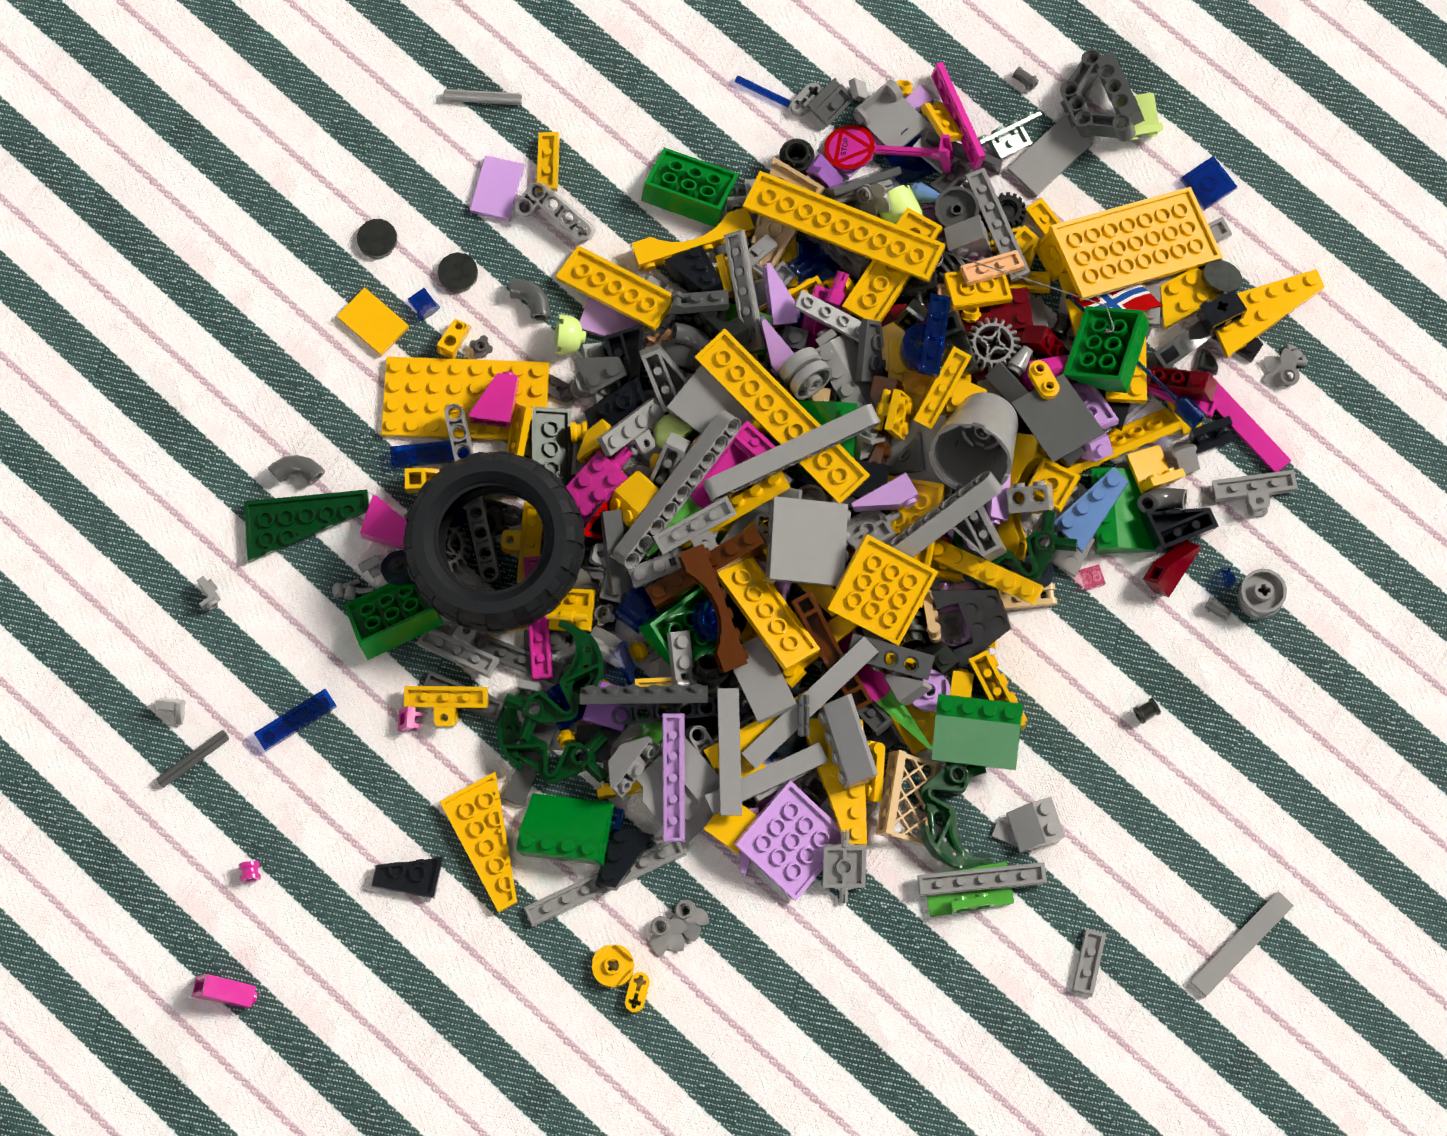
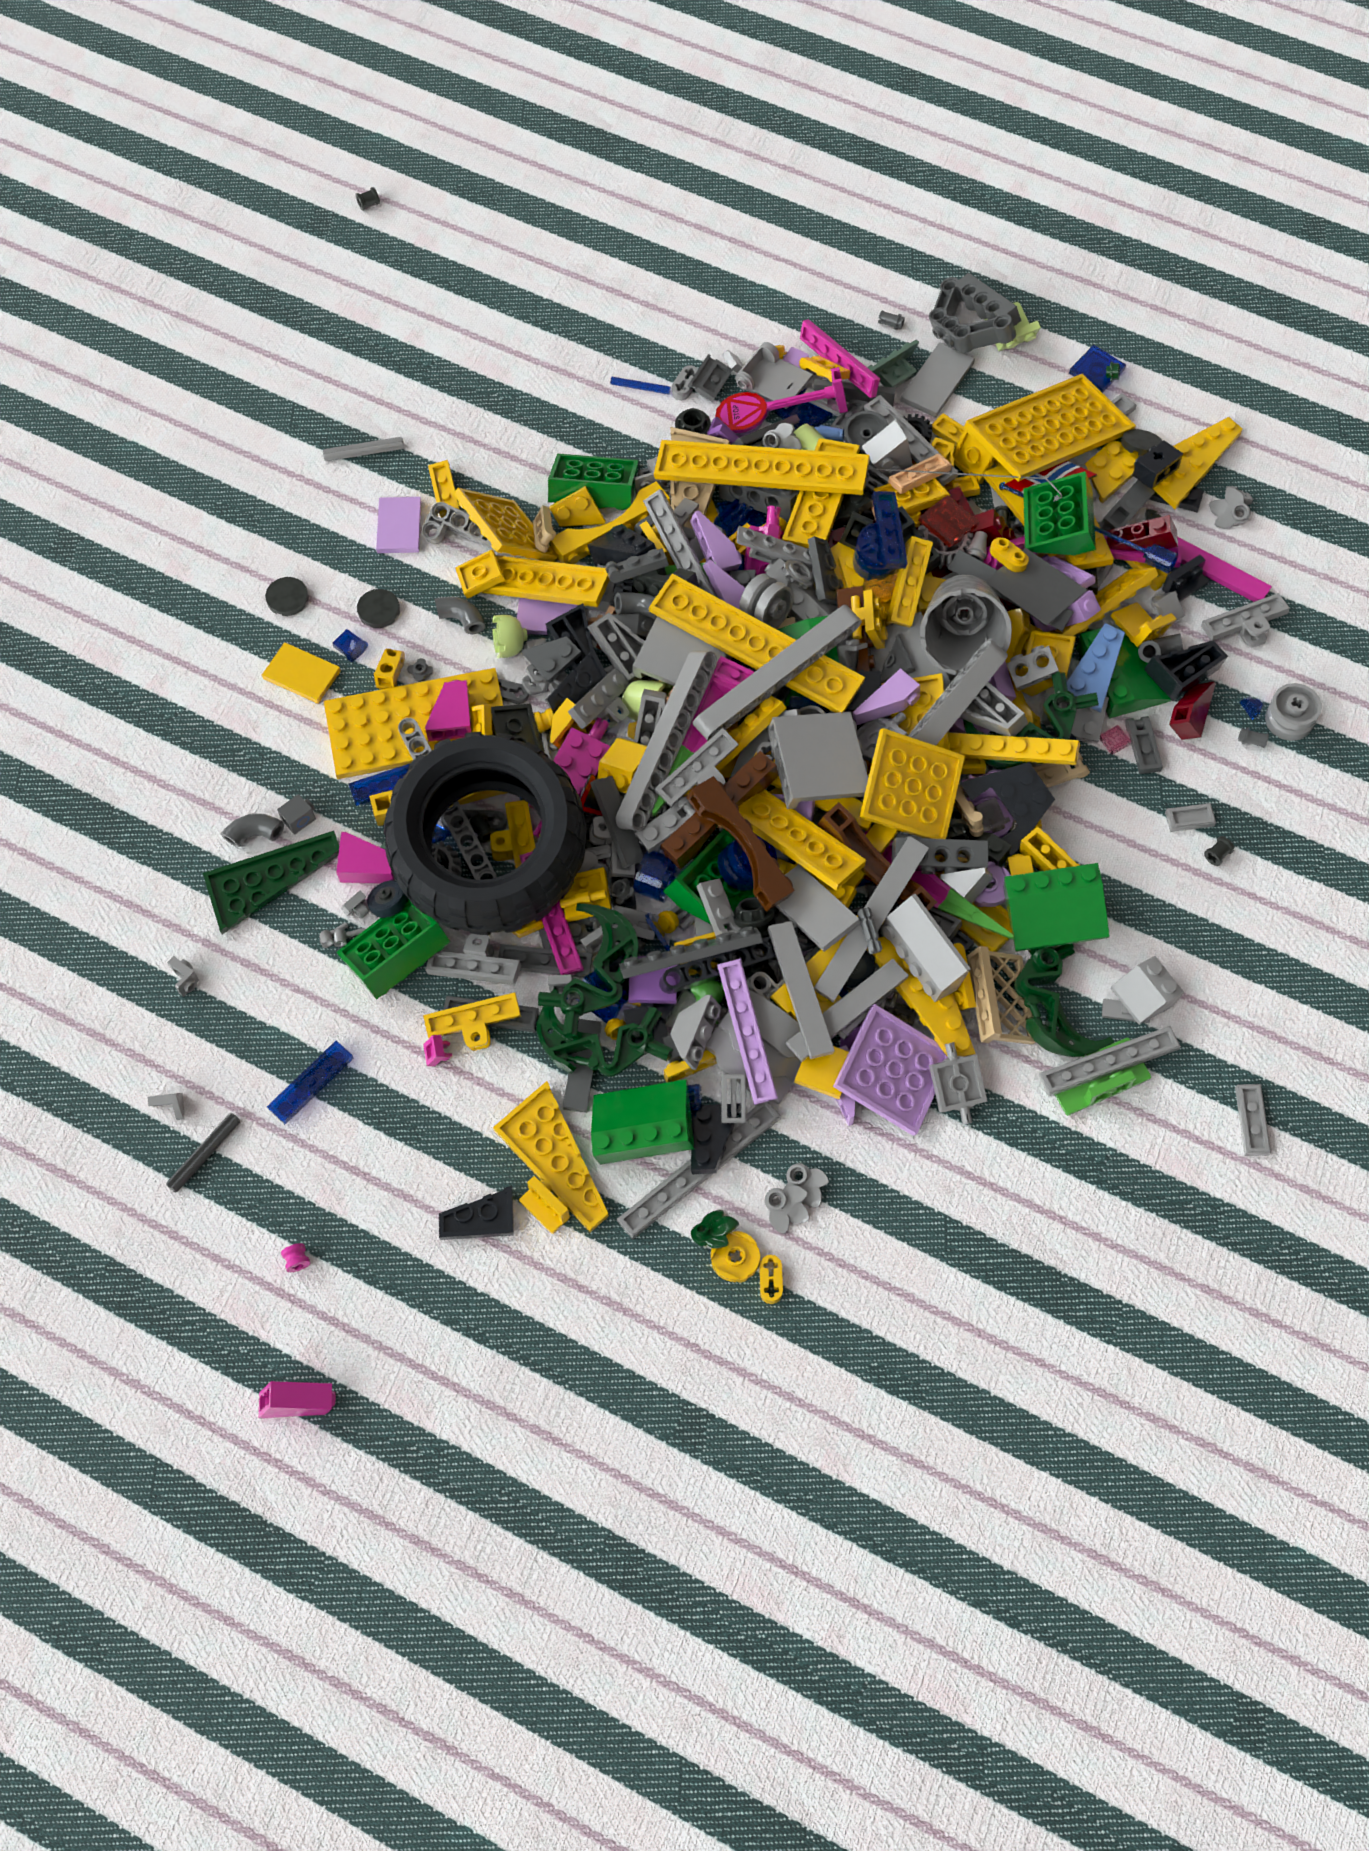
camera: 15 degrees left, 10 degrees down
(338, 464) = (297, 813): none -> dark grey brick
(465, 882) = (544, 1206): none -> yellow bracket
(558, 262) = (480, 573): none -> yellow tile
(592, 223) = (503, 524): none -> yellow plate
(602, 937) = (713, 1229): none -> dark green plate
(627, 232) = (543, 529): none -> tan plate
(651, 813) = (733, 1077): none -> light grey tile
(666, 217) = (577, 510): none -> yellow wing
(849, 346) = (798, 574): none -> light grey gear
(999, 330) = (948, 521): none -> clear red slope
(1115, 590) = (1144, 745): none -> dark grey plate
(1134, 671) = (1190, 817): none -> light grey tile
(1220, 193) = (1113, 371): none -> dark green plate

